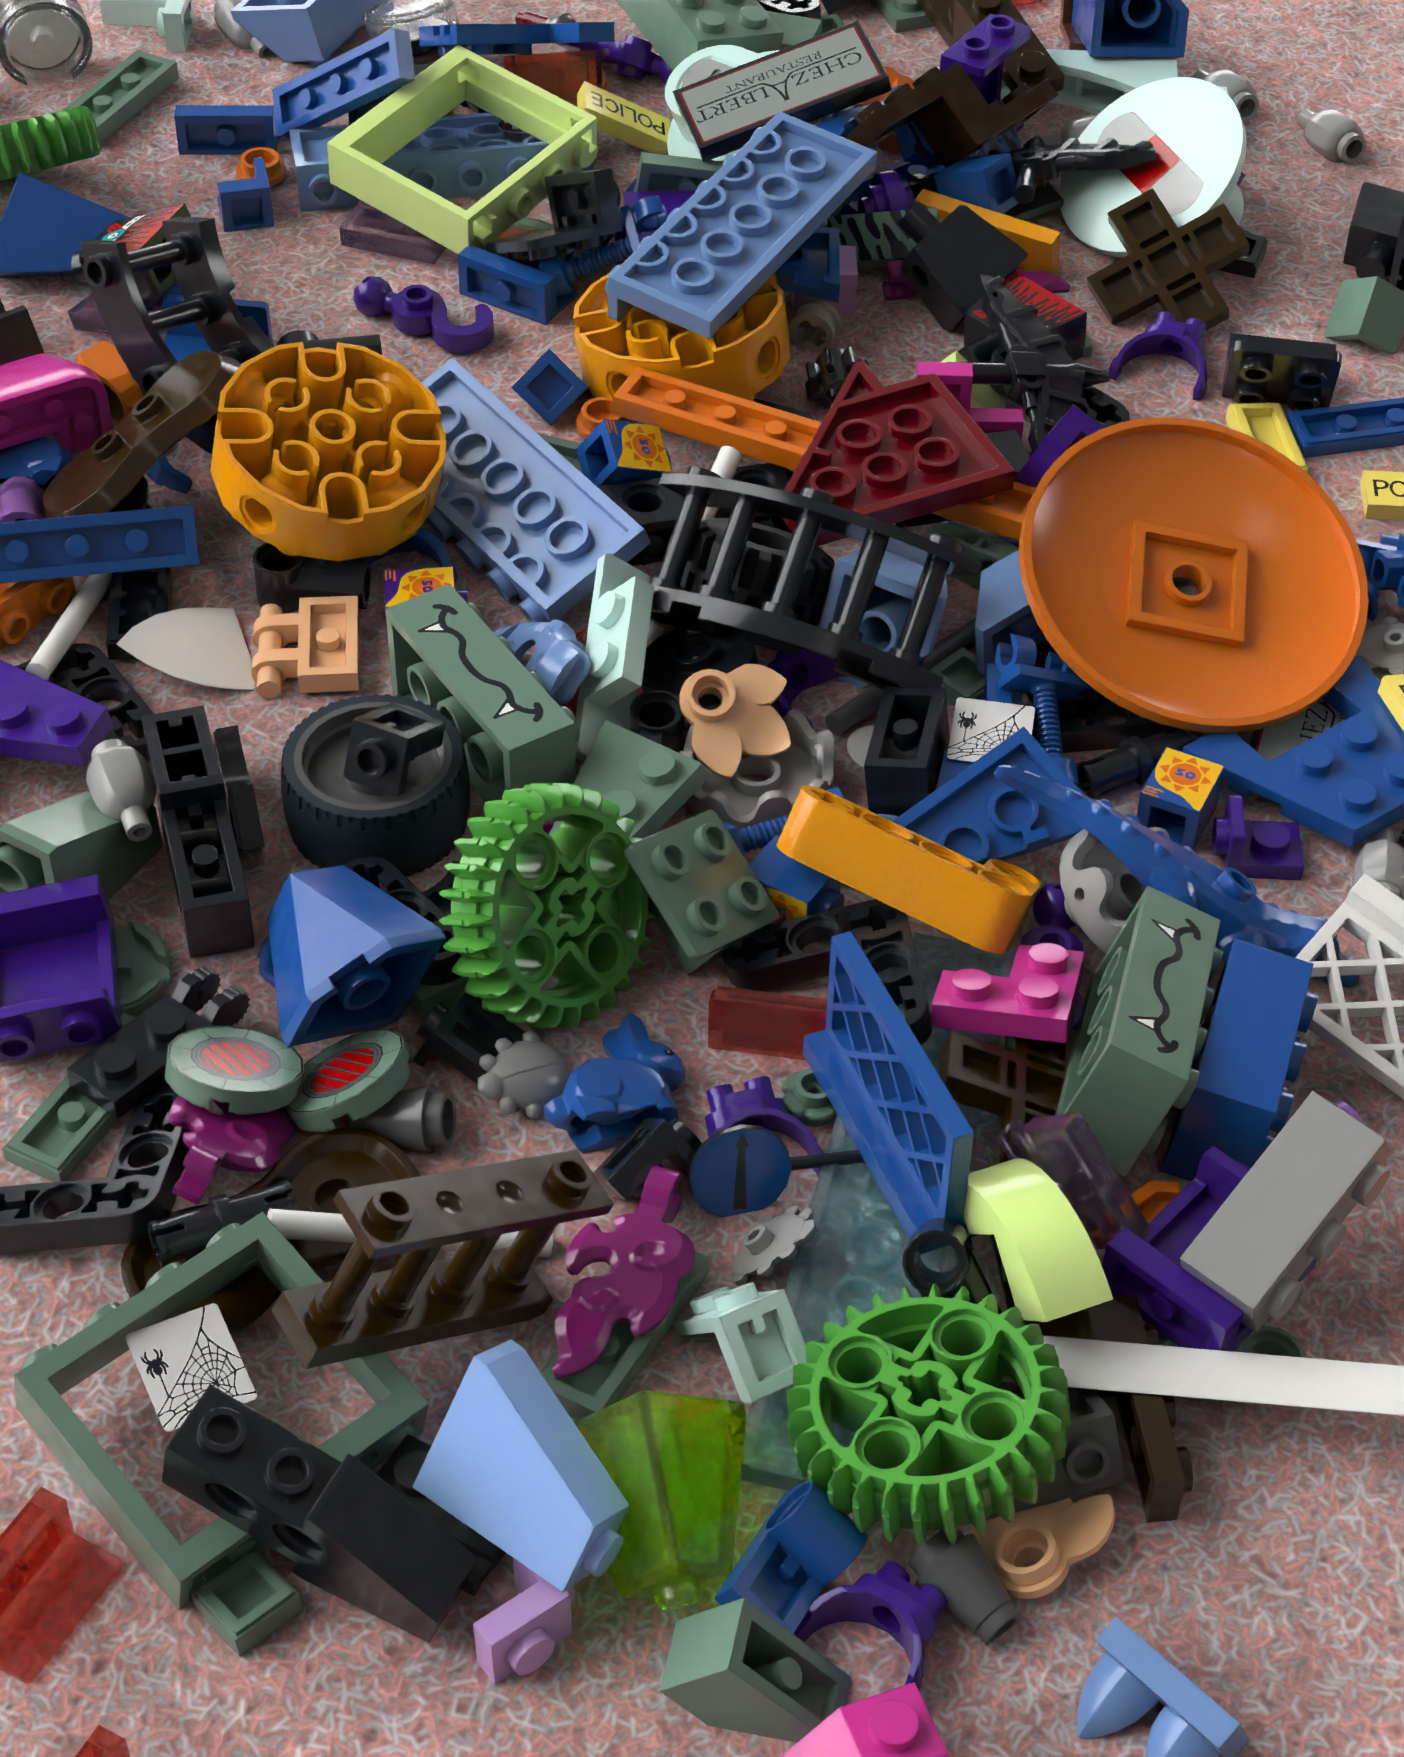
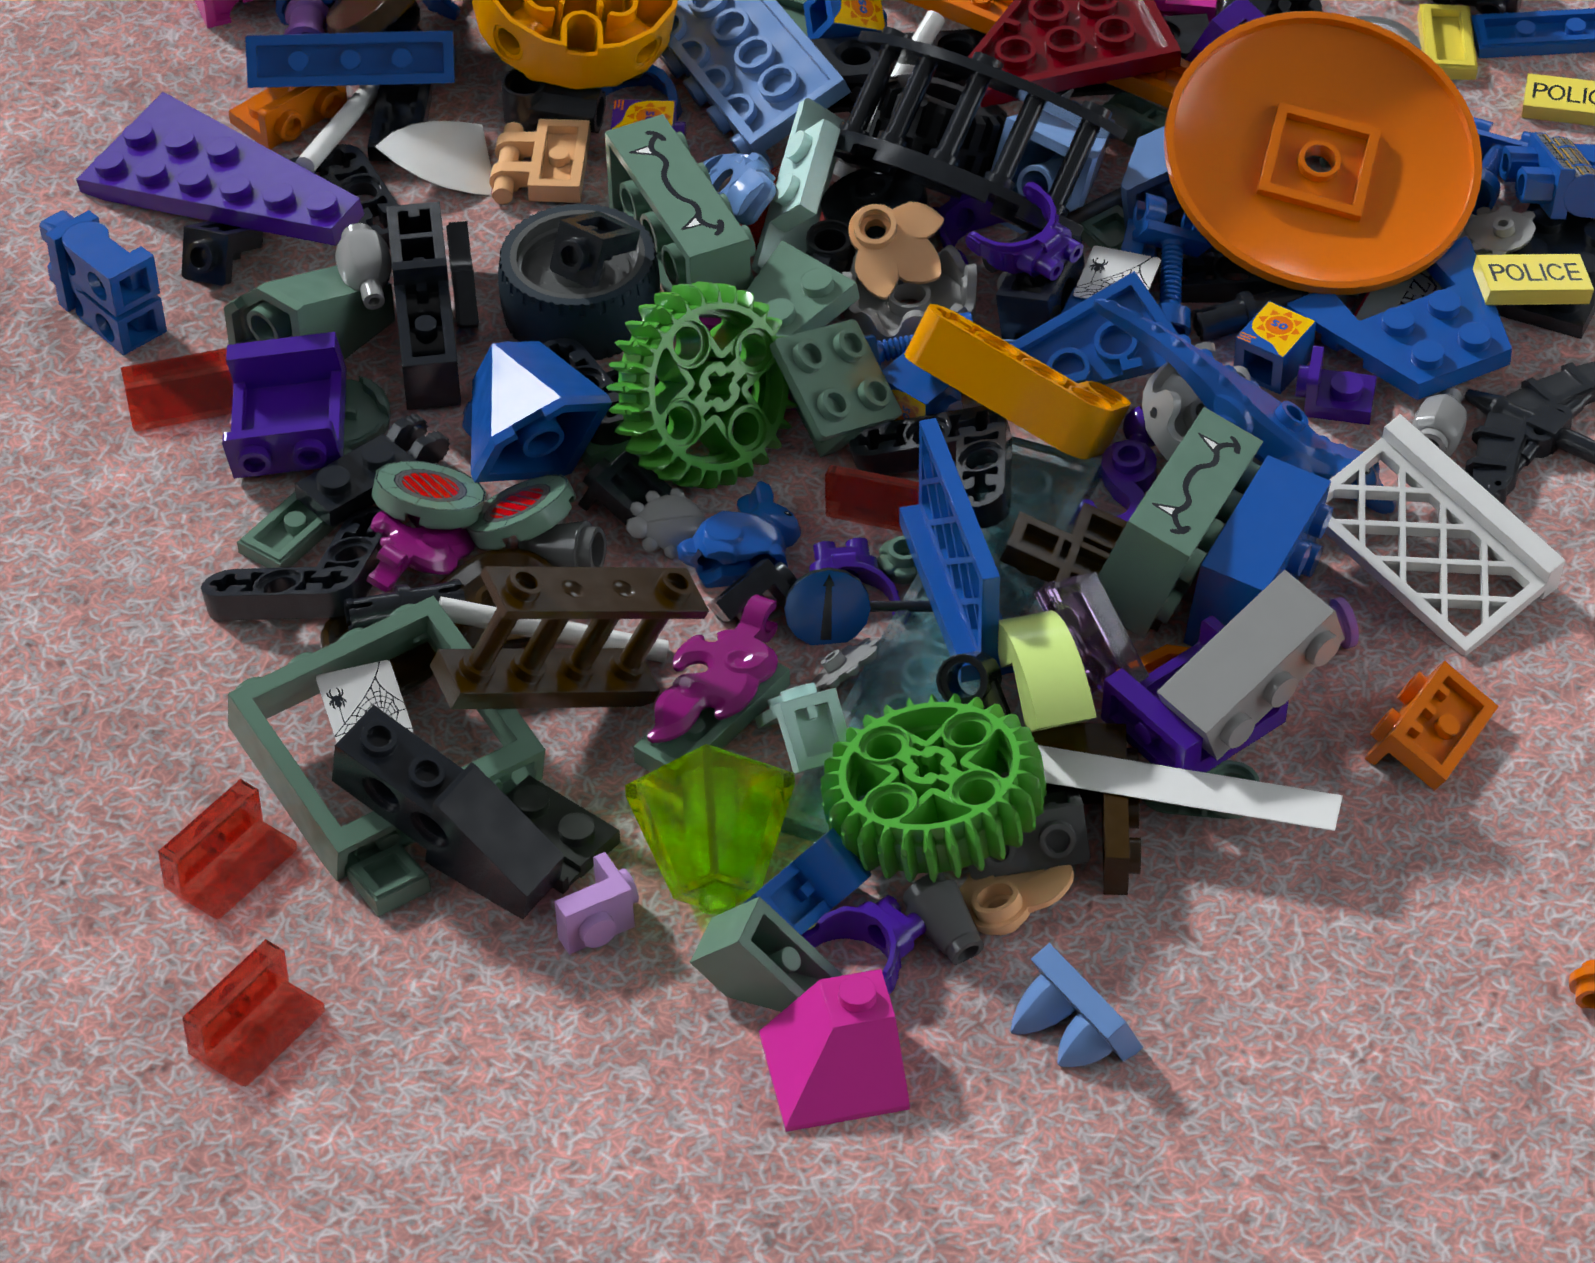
camera: 10 degrees right, 0 degrees up
(523, 1472) = (606, 794): light blue slope -> none
(907, 716) = (1038, 255): none -> dark purple helmet
(1029, 1004) = (1095, 498): dark pink plate -> none

